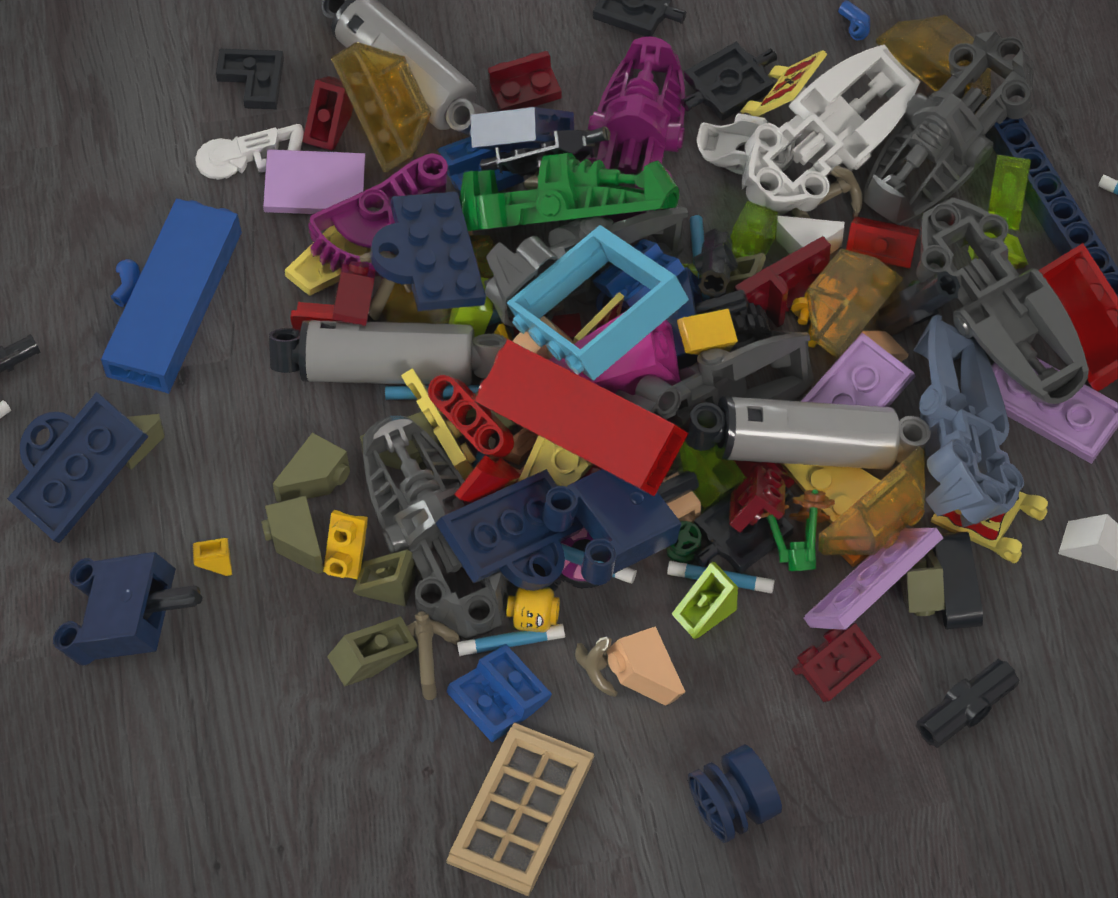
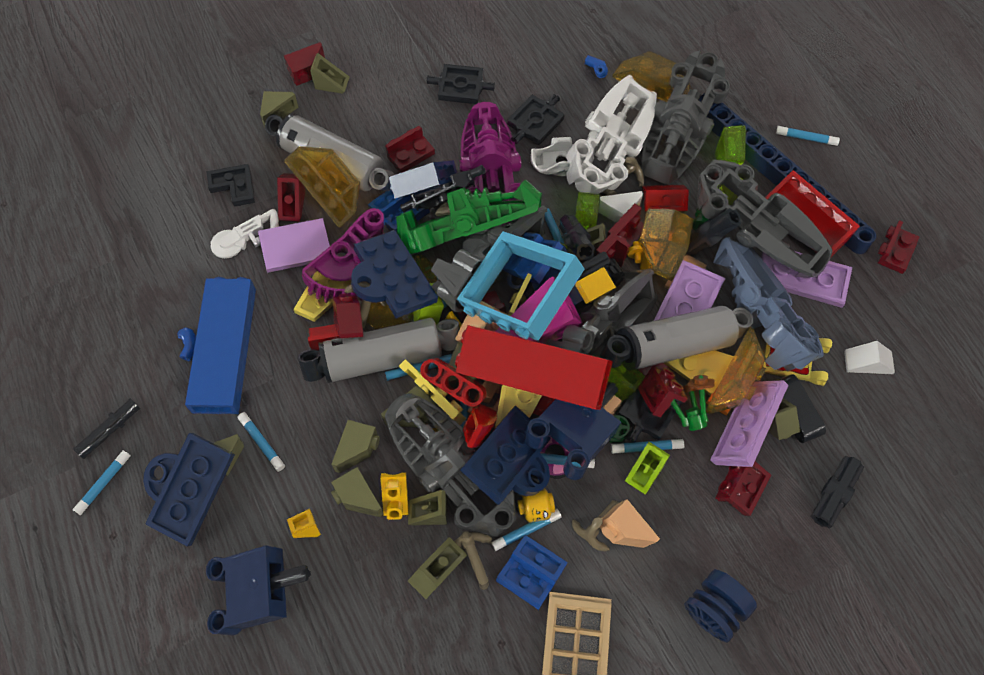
camera: 20 degrees left, 5 degrees up
(188, 436) = (261, 442): none -> dark azure bar
(789, 84) = (576, 112): light yellow flag -> none

